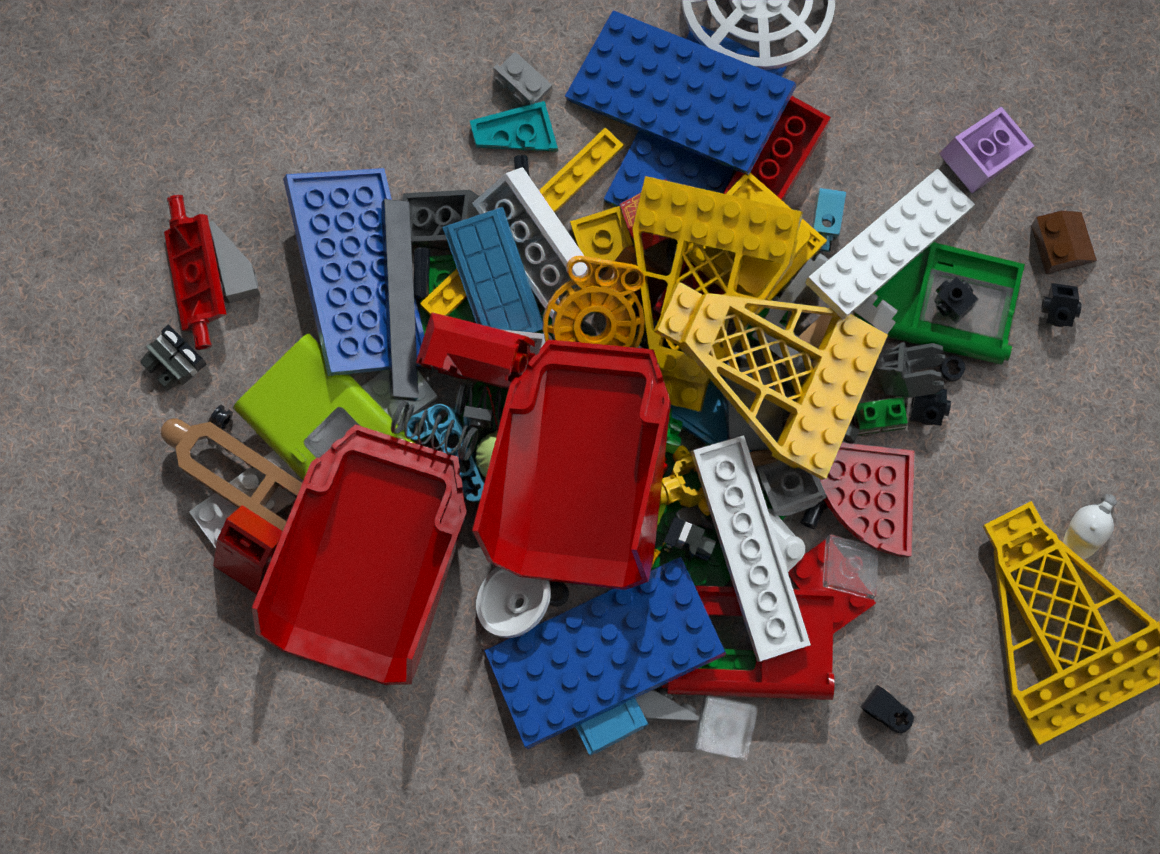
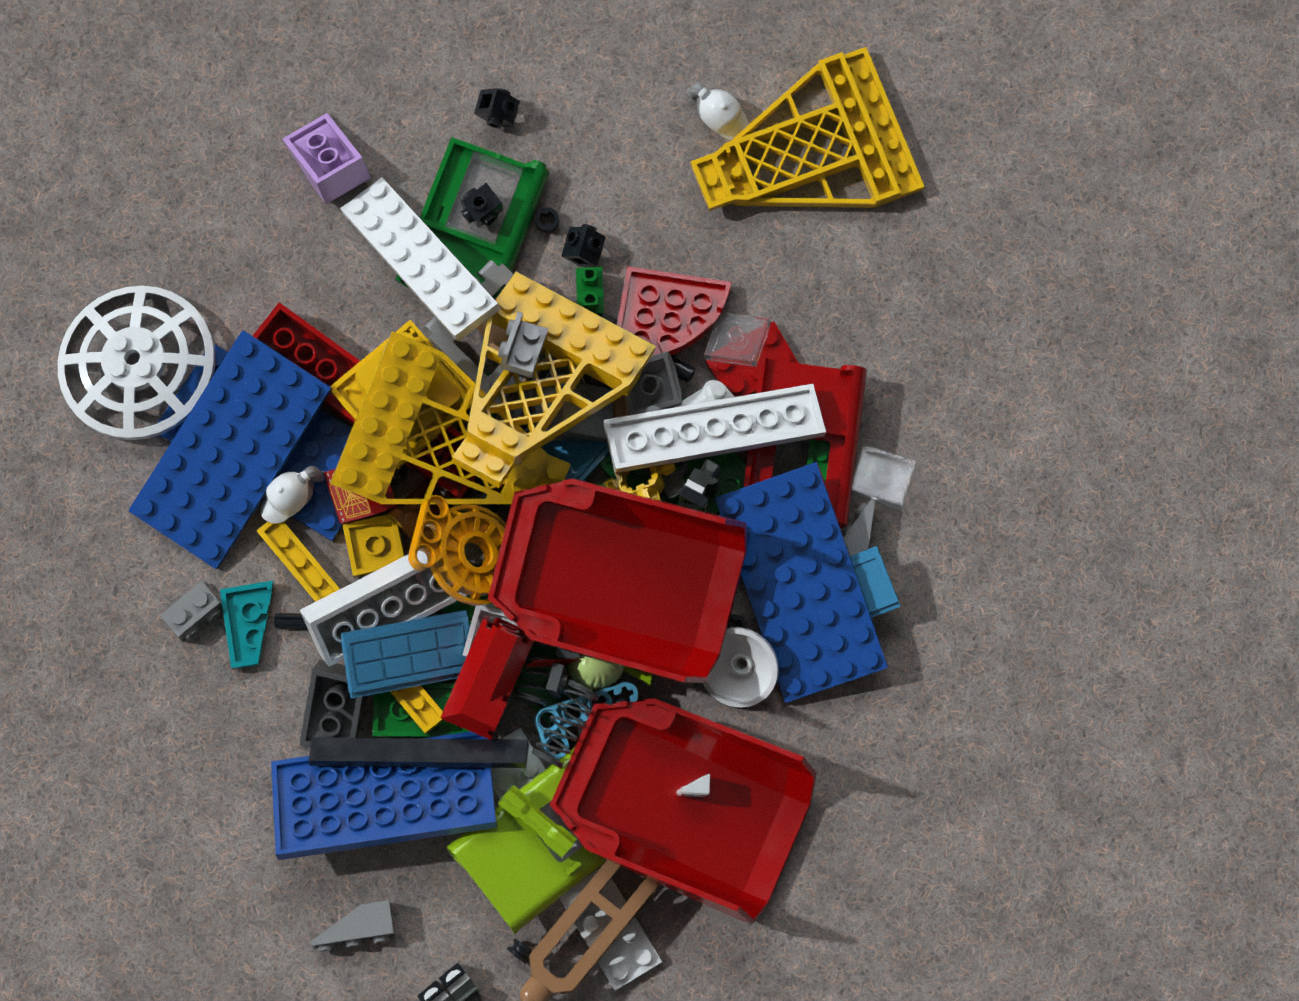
camera: 85 degrees left, 0 degrees up
(193, 271) = (362, 966): red plate -> none
(246, 547) = (664, 925): red slope -> none
(326, 430) = (521, 807): none -> lime axle
(385, 565) = (697, 788): none -> white slope
(421, 273) = (391, 729): black axle -> none
(642, 151) = (289, 494): none -> white hair
(805, 342) = (522, 347): none -> light grey bracket
(828, 206) = (371, 315): medium azure torso -> none
(884, 706) = (876, 324): black piece -> none
(896, 369) = (549, 272): dark grey piece -> none
(1062, 240) = (430, 98): reddish brown slope -> none

